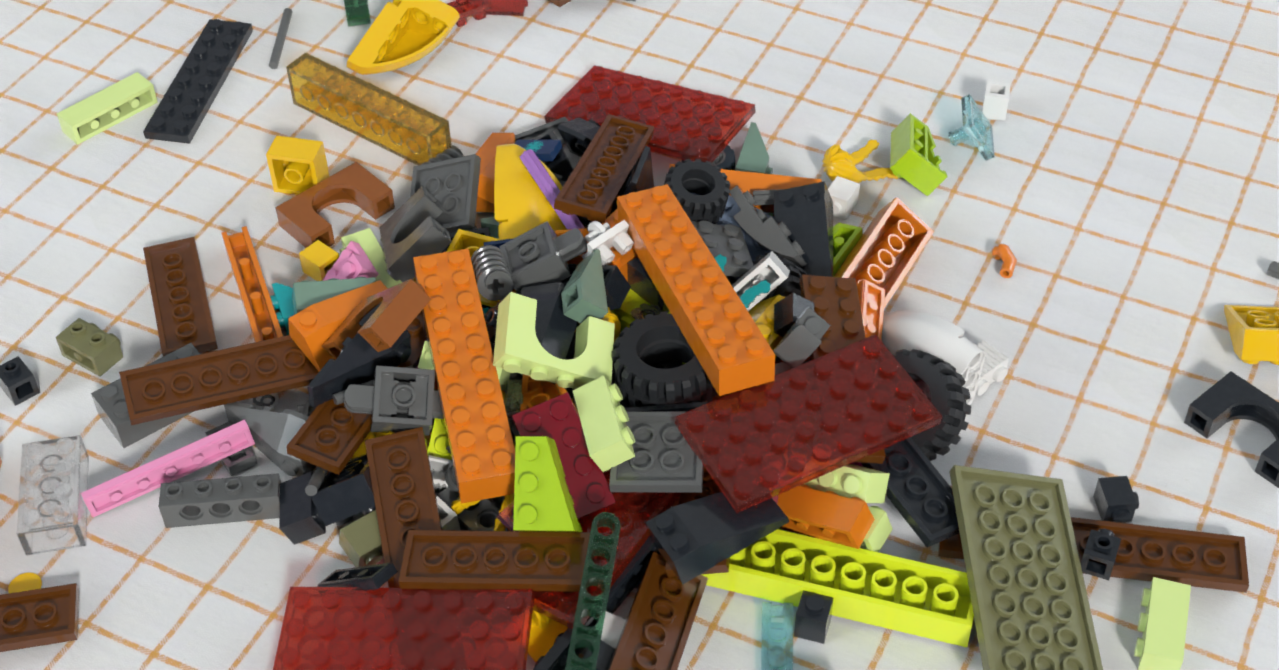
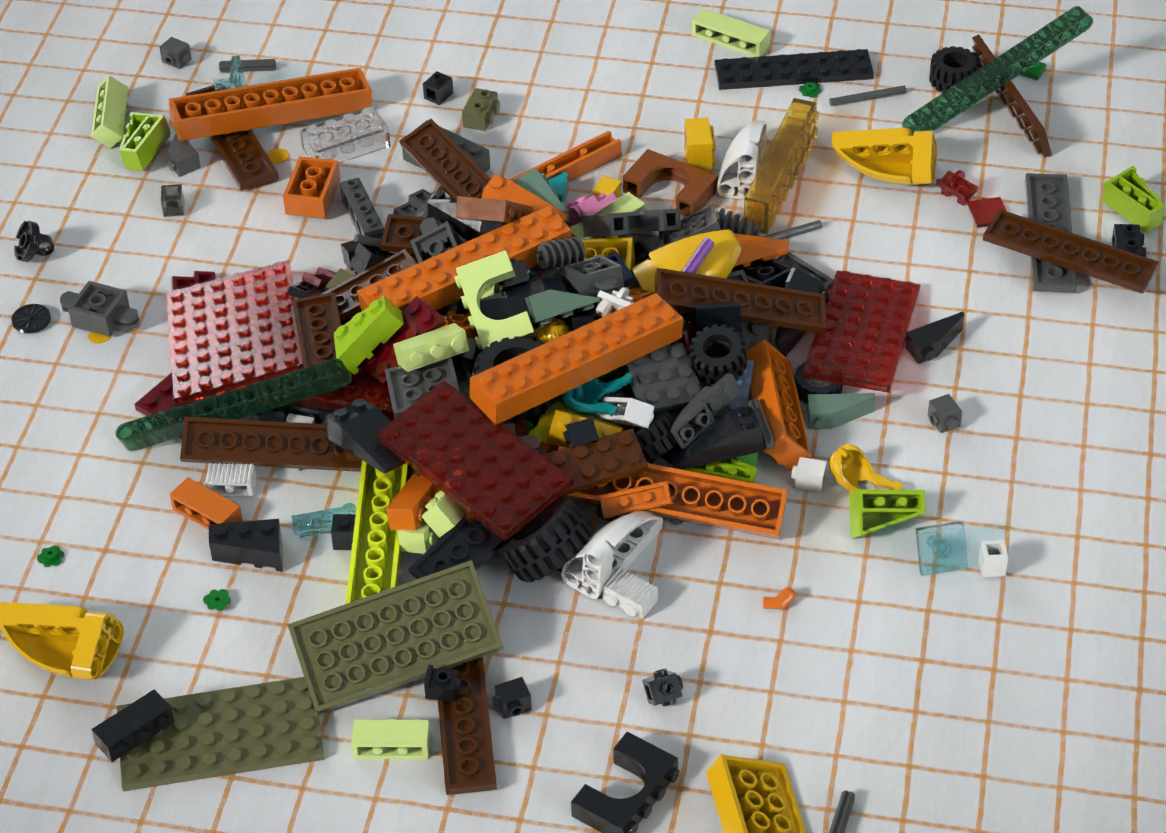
camera: 75 degrees right, 0 degrees up
(138, 545) = (311, 187): none -> orange brick
(167, 468) = (380, 179): bright pink tile -> none
(179, 296) = (545, 135): reddish brown plate -> none
(239, 76) = (810, 89): none -> green plant
(327, 565) = (320, 279): none -> dark red slope
(347, 125) = (742, 160): none -> white panel
(463, 133) = (796, 230): none -> dark grey bar
(544, 149) = (763, 264): dark blue tile -> none
(678, 68) = (931, 339): none -> black slope
(787, 89) = (944, 413): none -> dark grey brick
(801, 338) = (554, 436): dark grey slope -> none
(1124, 368) = (663, 687): none -> black brick

